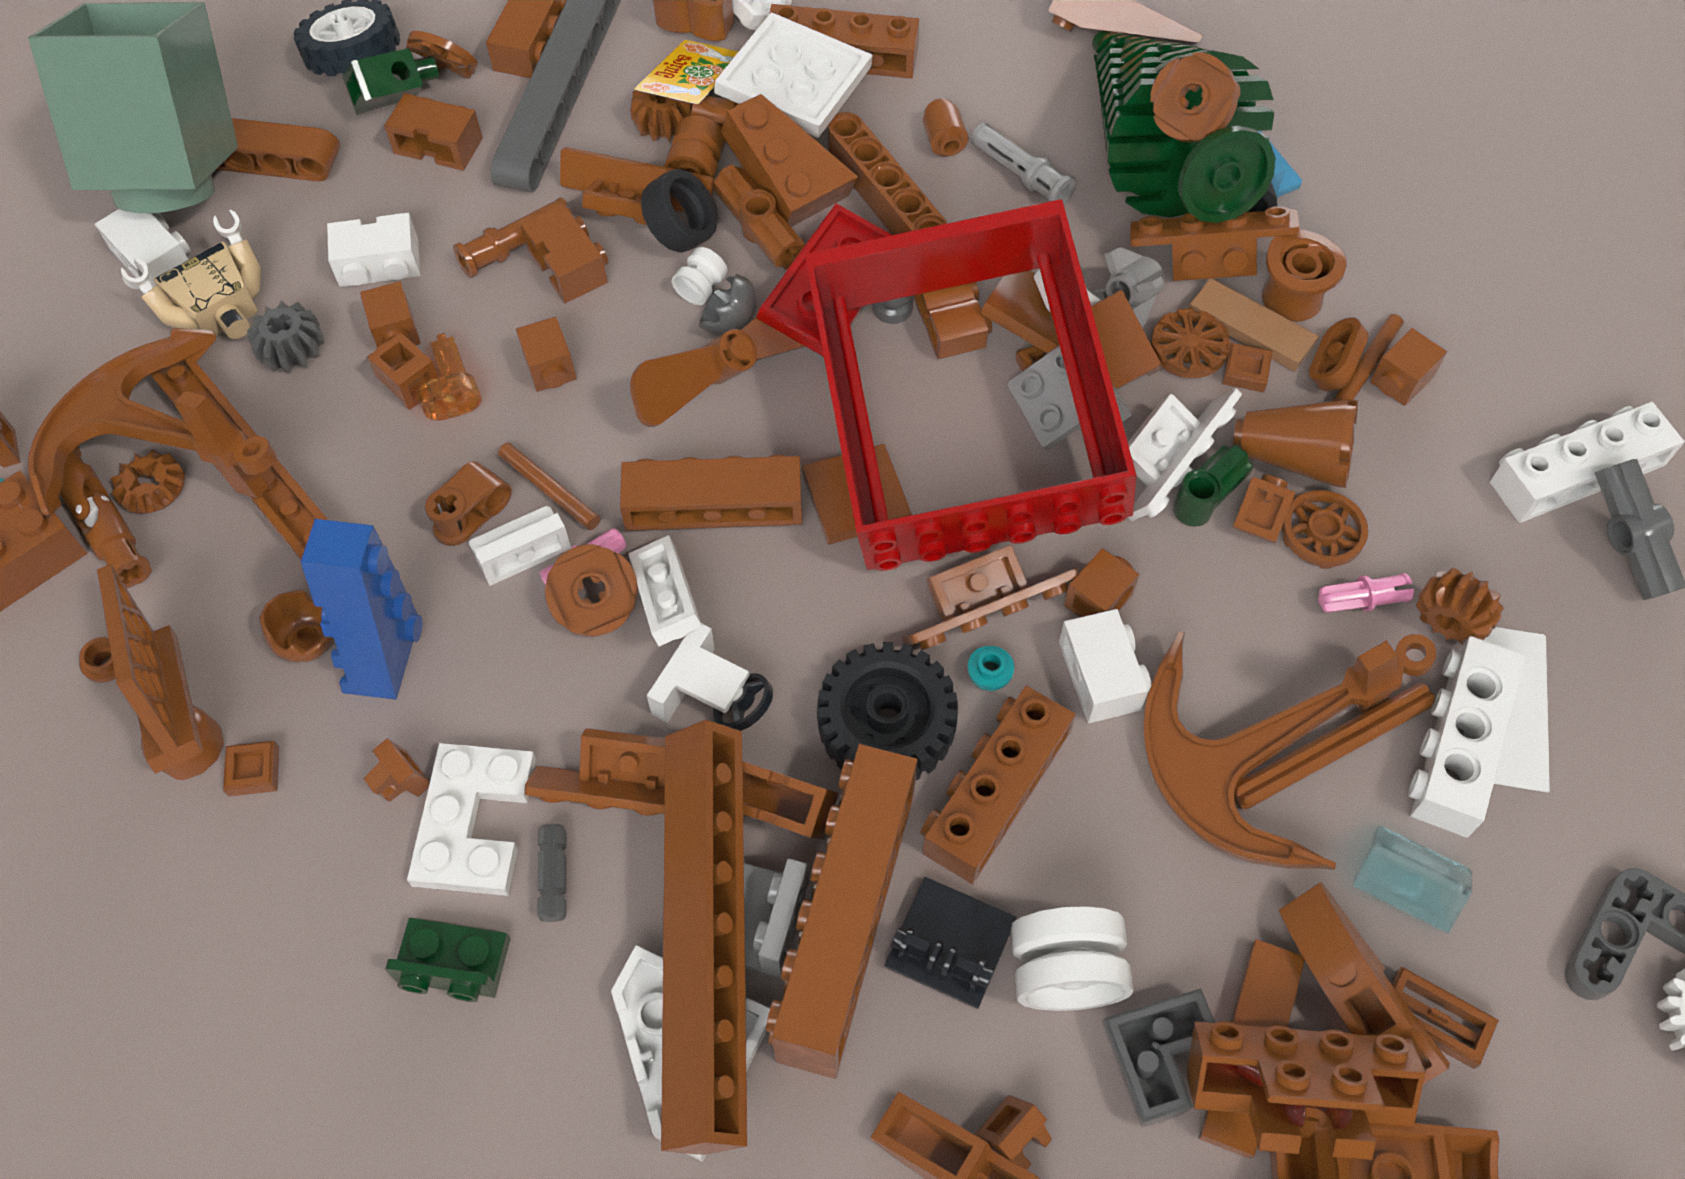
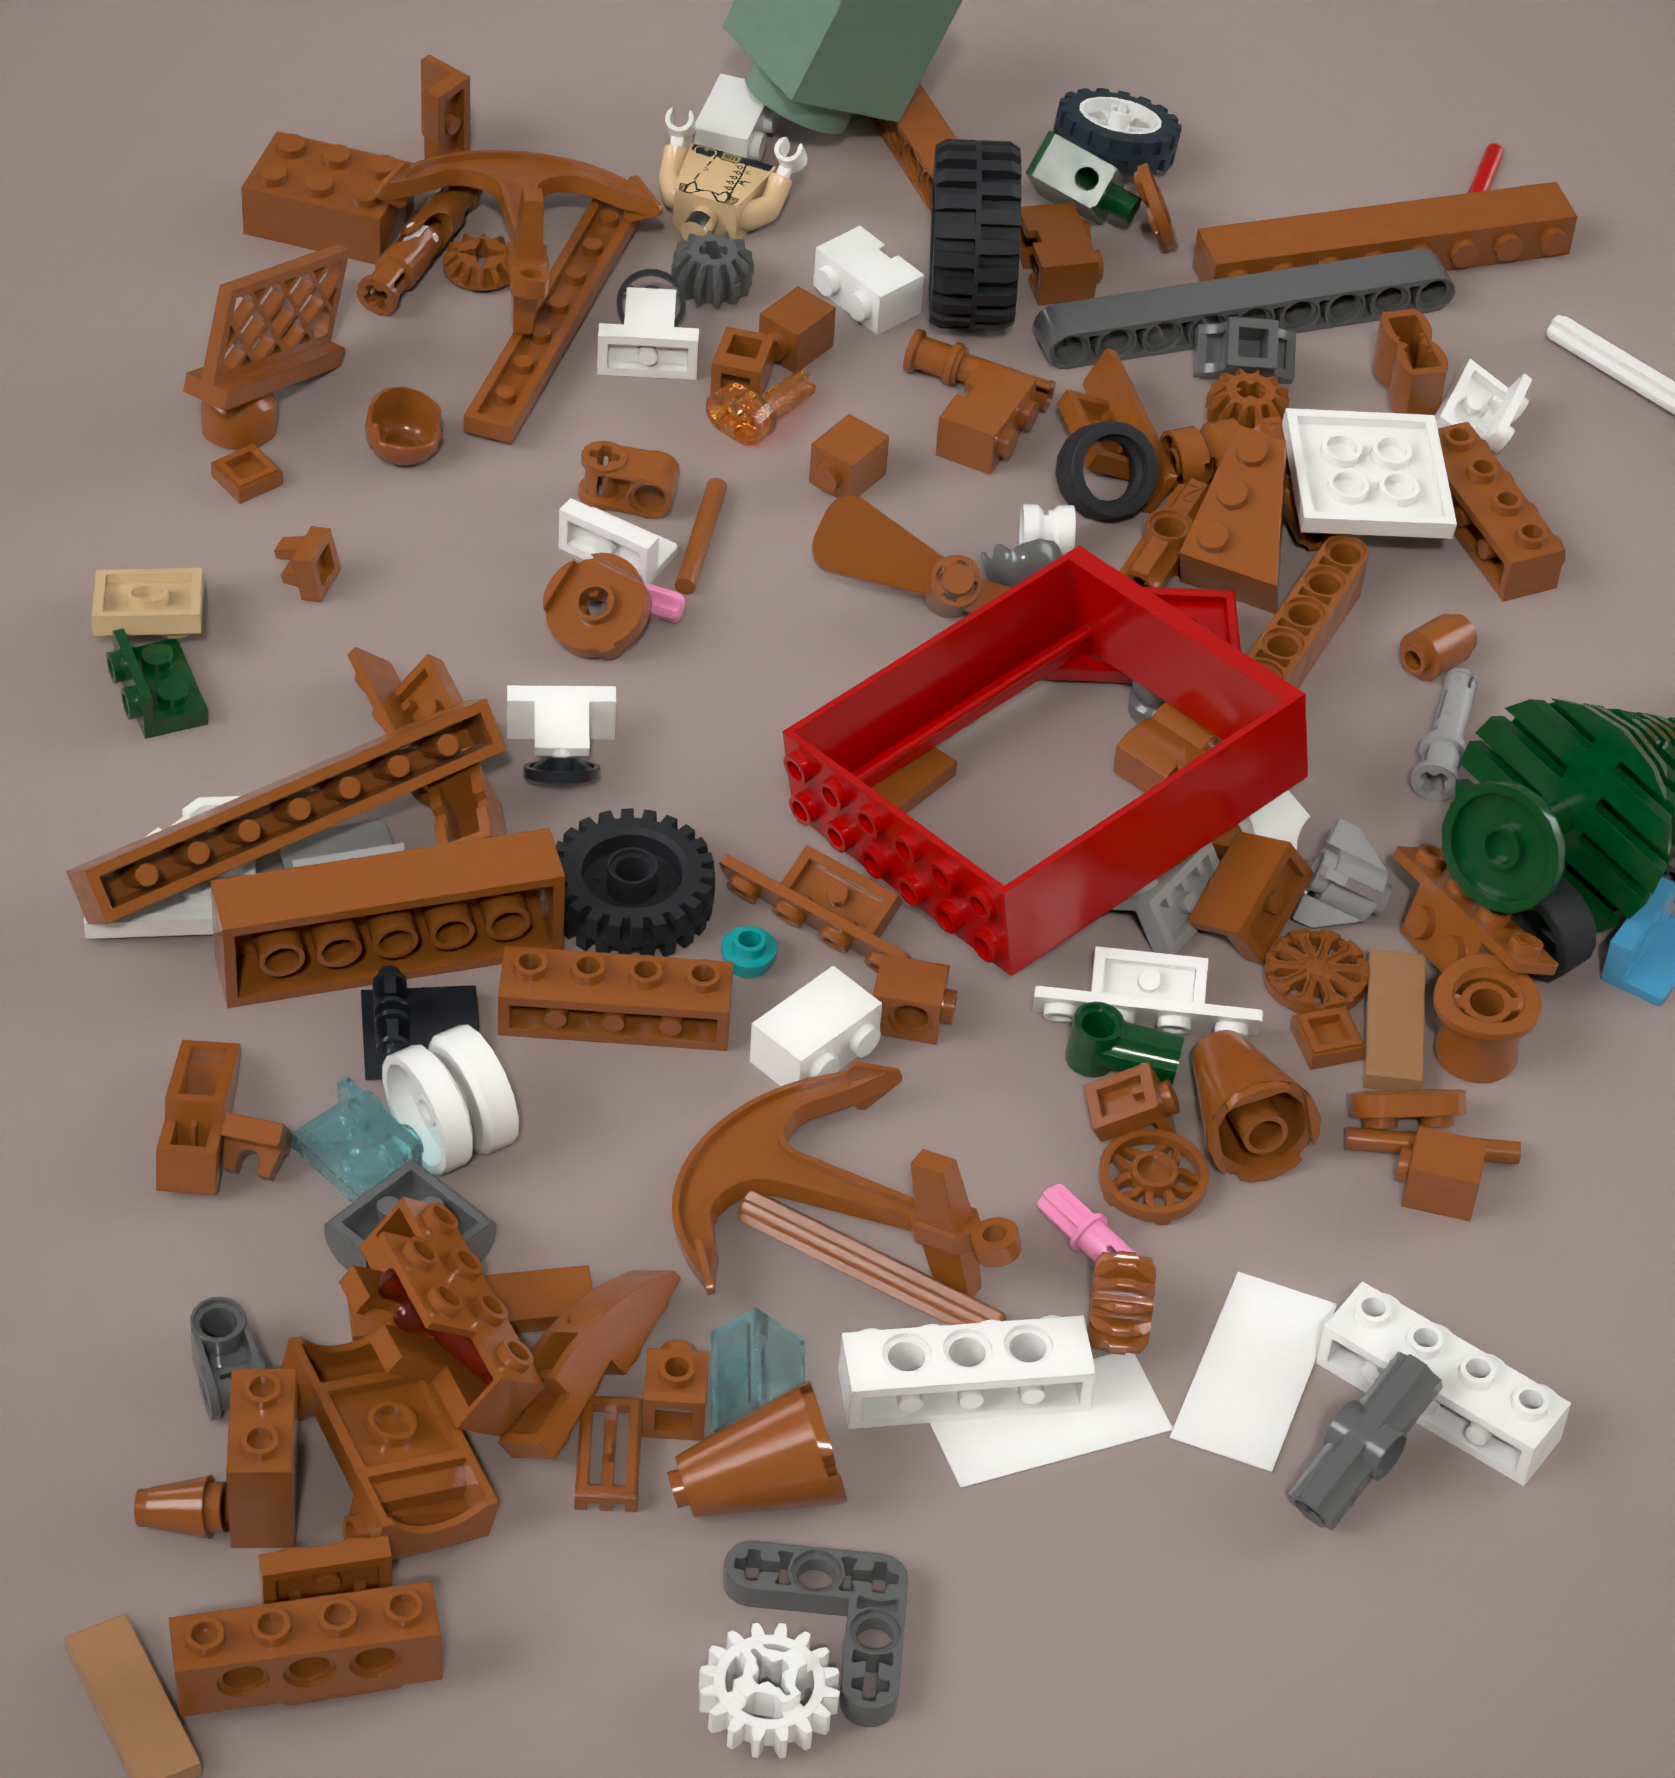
camera: 55 degrees right, 15 degrees down
(332, 412) = (649, 335): none -> white piece
(359, 921) = (148, 602): none -> tan plate
(361, 606) = (438, 436): blue wedge -> none
(416, 155) = (975, 234): none -> black tyre
(444, 847) = (260, 638): white plate -> none
(552, 873) = (288, 717): dark grey axle -> none
(611, 83) = (1245, 345): none -> dark grey brick
(664, 591) = (634, 653): white plate -> none
(688, 72) = (1273, 390): sticker -> none
(711, 492) = (772, 637): dark orange brick -> none
(1056, 1050) = (356, 1142): none -> clear light blue bracket
(1218, 95) = (1547, 745): dark orange plate -> none
(1398, 950) = (675, 1380): none -> dark orange brick
(1514, 562) = (1253, 1372): none -> white sticker
(1517, 913) = (762, 1461): none -> dark orange cone

